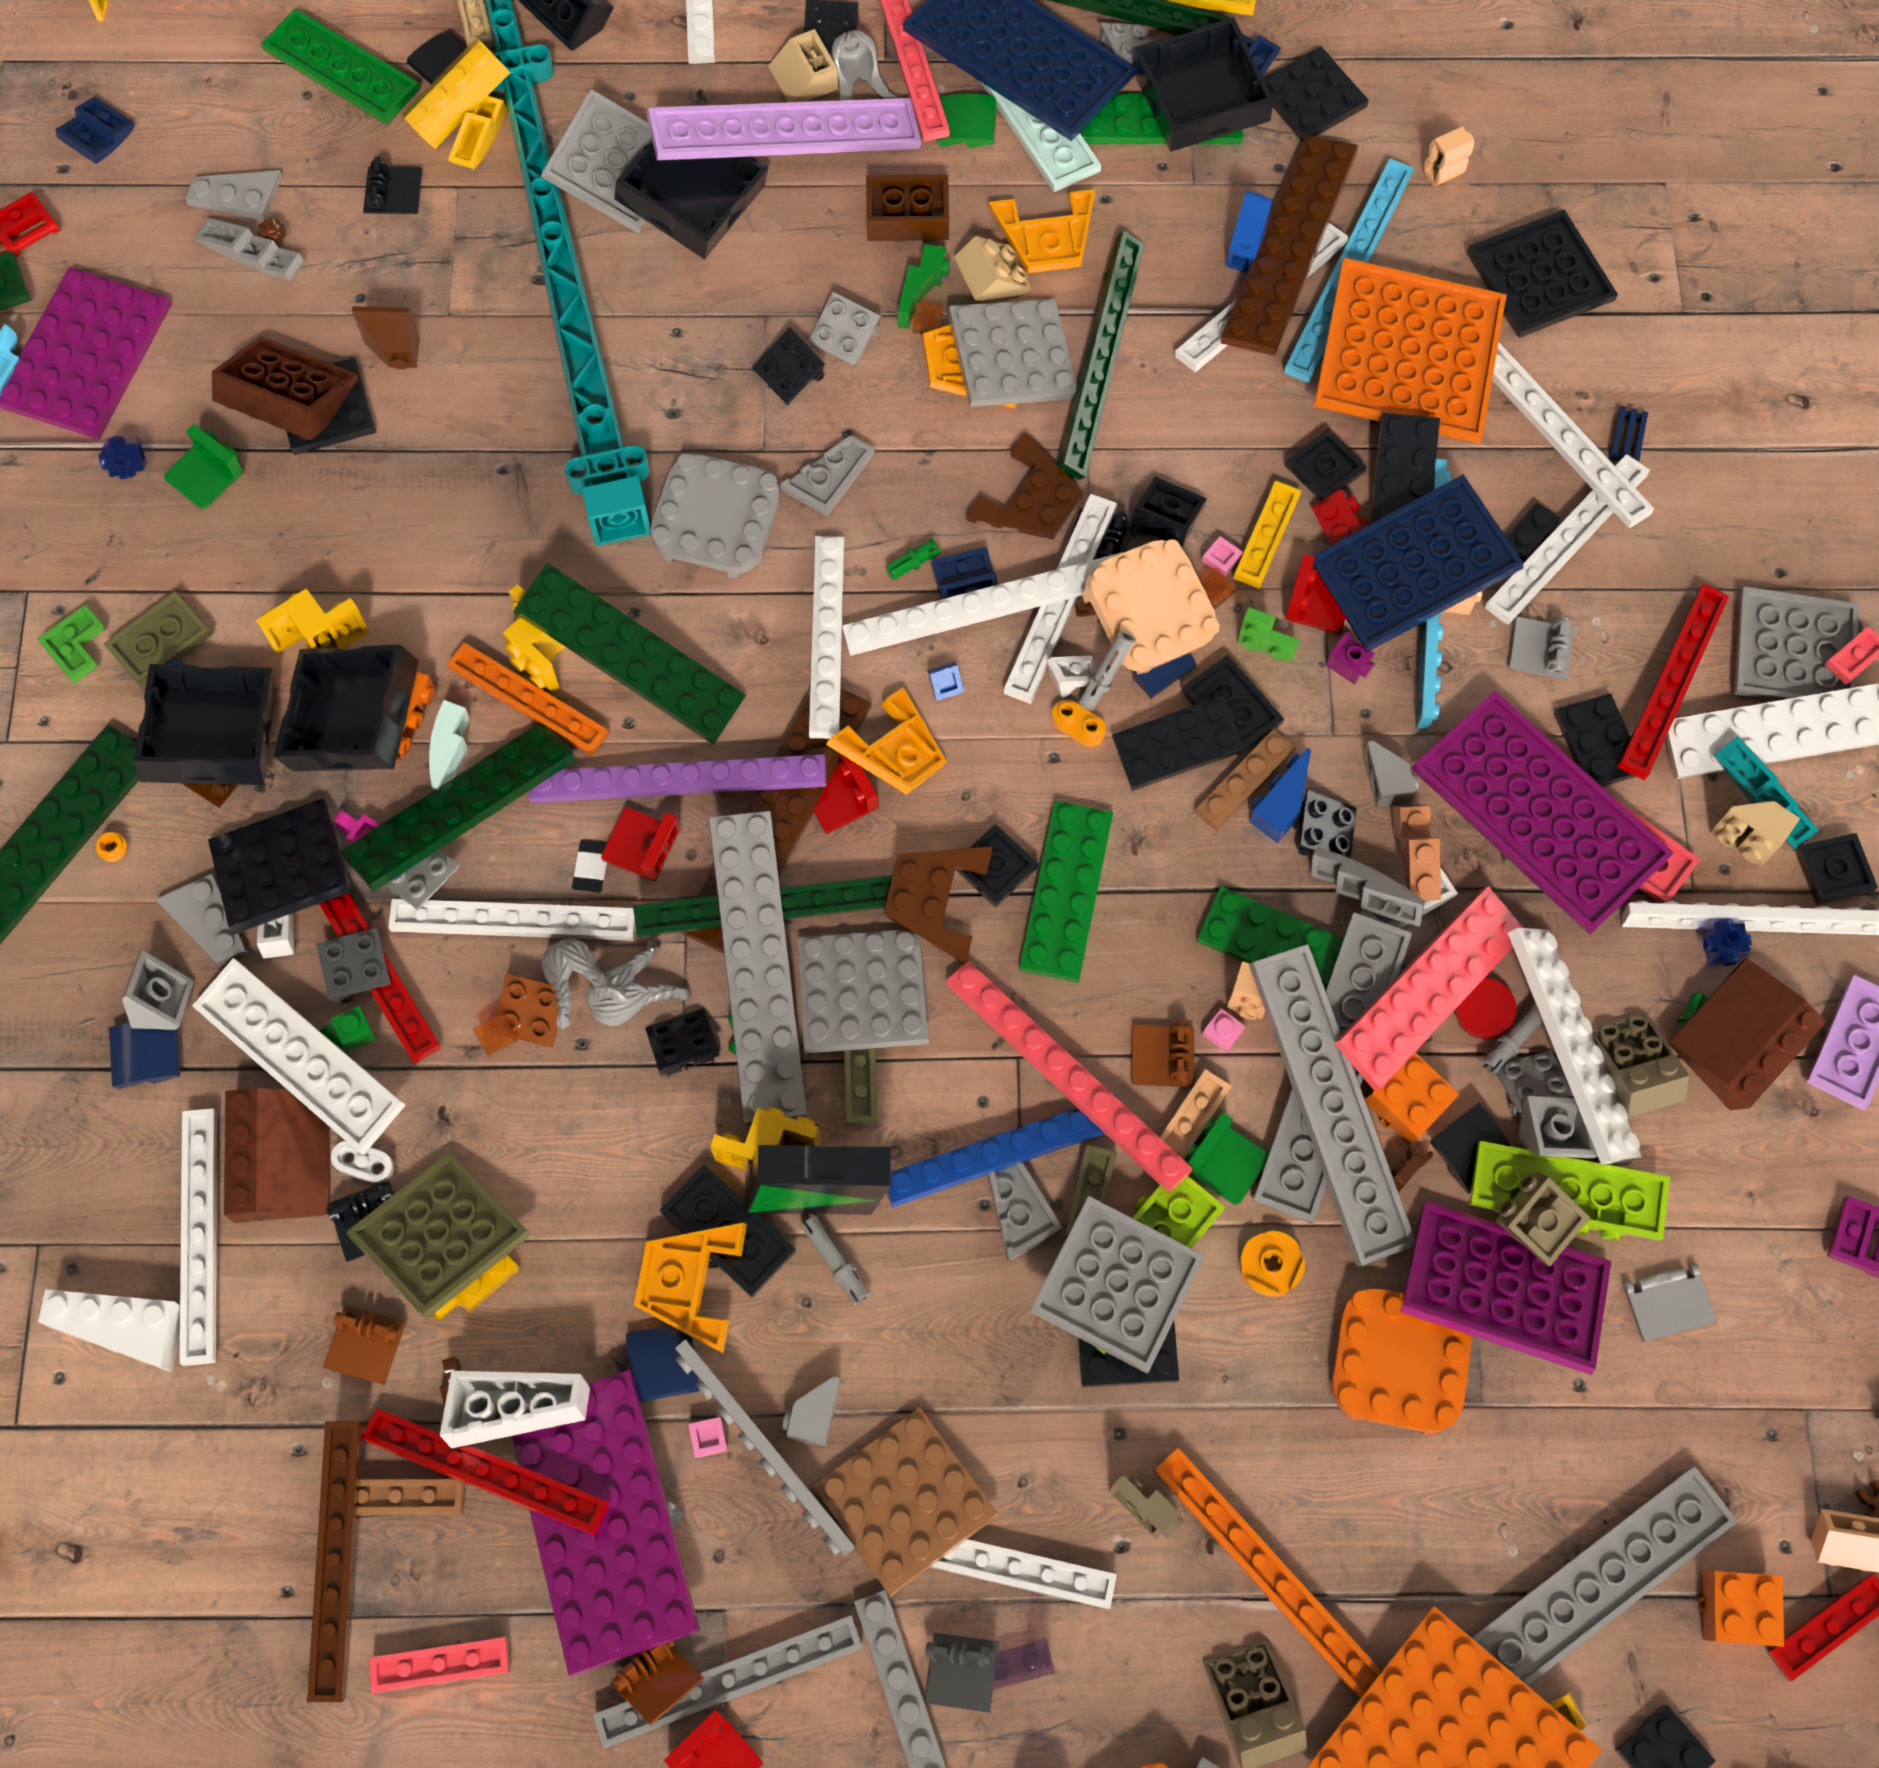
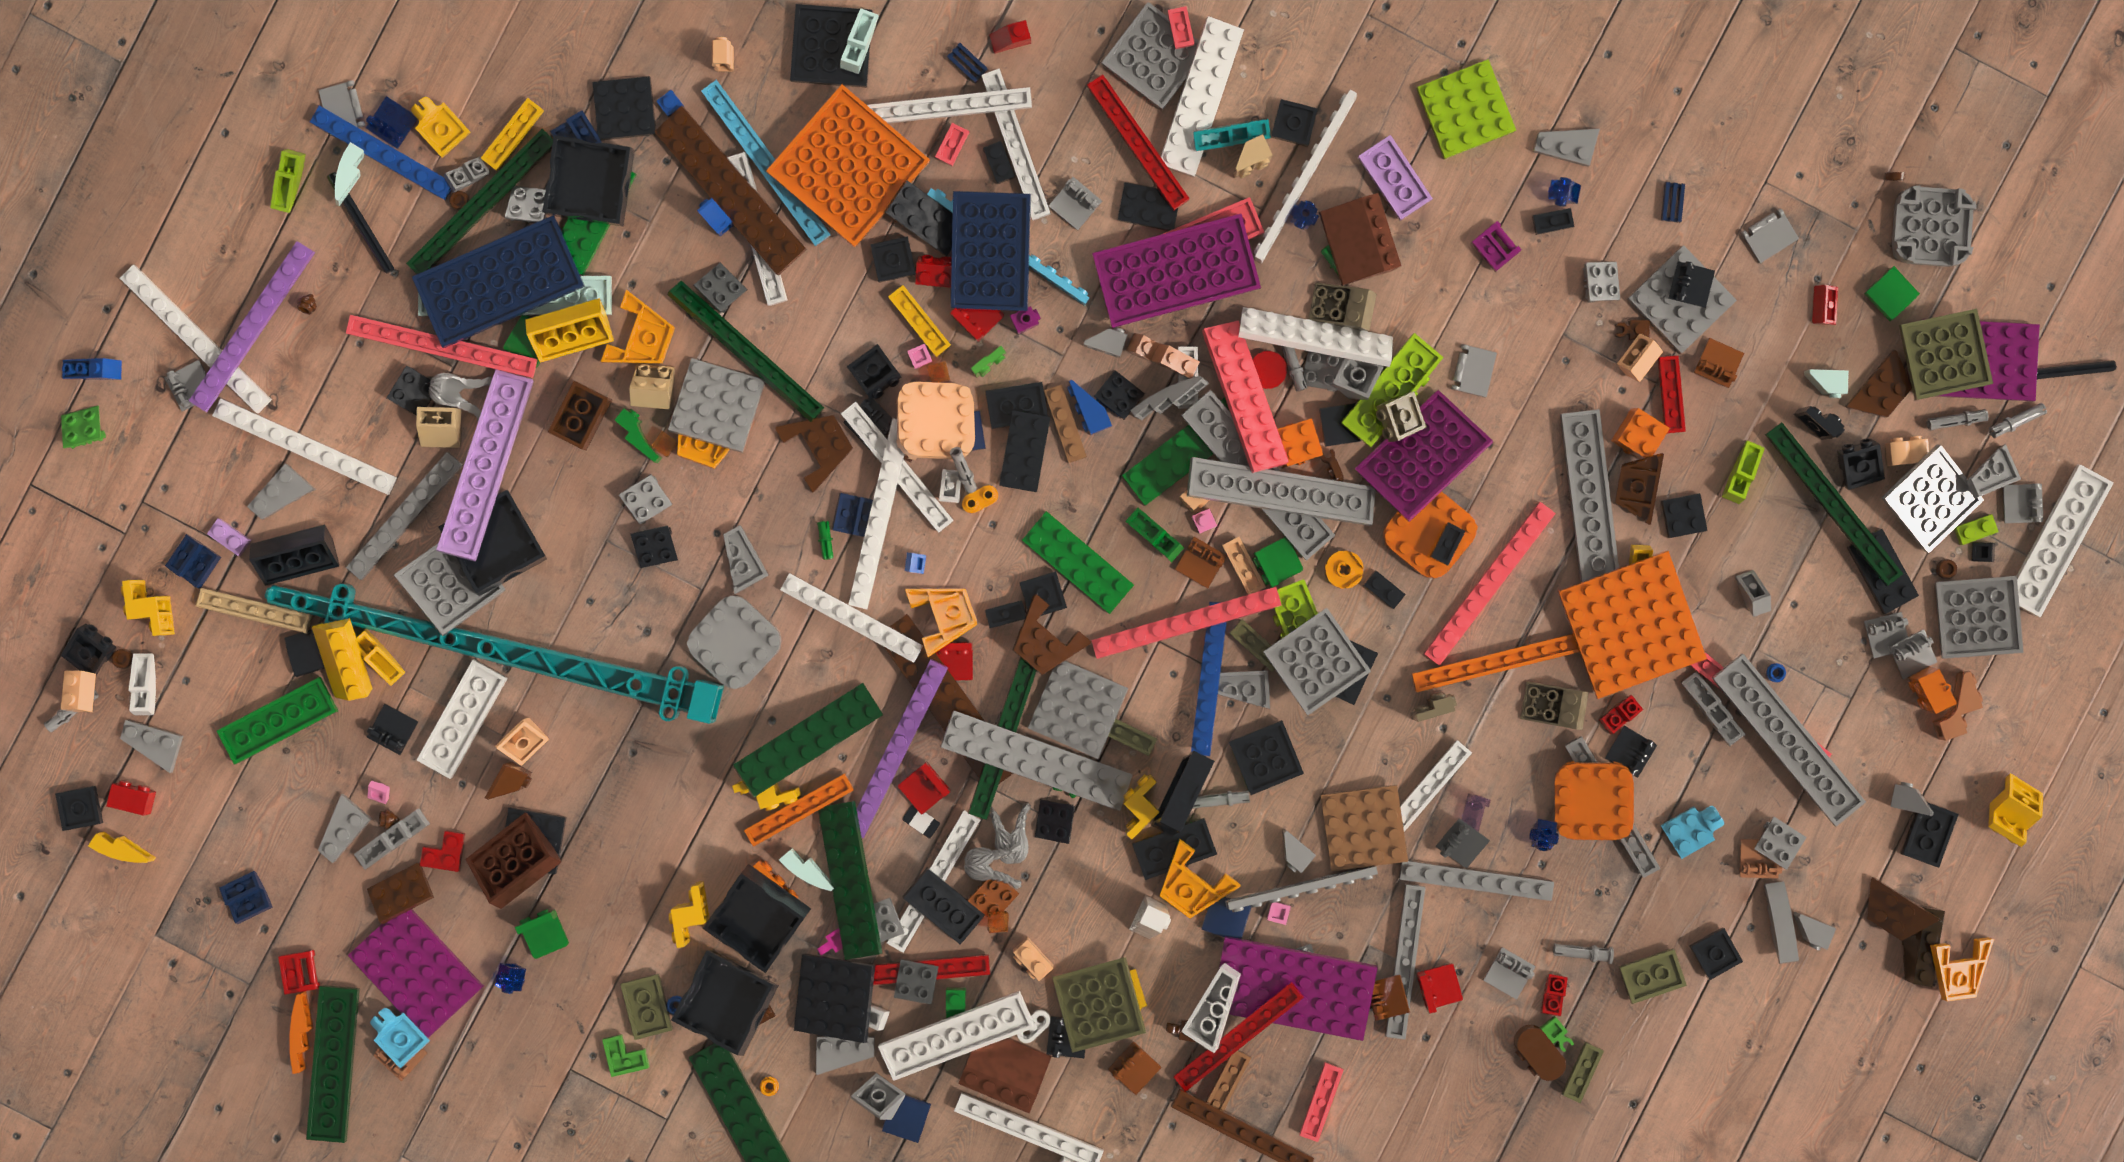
camera: 60 degrees left, 20 degrees up
(180, 287) = (400, 893): none -> reddish brown plate
(256, 321) = (449, 856): none -> red plate
(302, 207) = (378, 792): none -> bright pink plate
(445, 256) = (462, 719): none -> white plate
(452, 330) = (522, 741): none -> light nougat slope
(463, 1109) = (1032, 957): none -> light nougat brick
(482, 945) = (943, 905): none -> black plate
(606, 1236) = (1150, 918): none -> white wedge
(659, 84) = (404, 516): none -> light grey plate
(933, 1295) = (1266, 757): none -> black plate
(940, 827) = (1005, 614): none -> black plate
(1006, 146) = (569, 330): none -> yellow slope
(1162, 290) = (720, 287): none -> dark grey hinge
(1165, 971) = (1154, 534): none -> green slope
(1277, 1341) = (1384, 589): none -> black plate
(1352, 134) = (669, 103): none -> blue plate
(1379, 1497) = (1489, 583): none -> coral plate
(1402, 1388) = (1447, 543): none -> black plate
(1516, 464) = (952, 144): none -> coral plate
(1569, 292) = (859, 41): none -> light aqua slope
(1667, 1650) = (1639, 486): none -> reddish brown wing
(1698, 467) = (1010, 37): none -> red slope

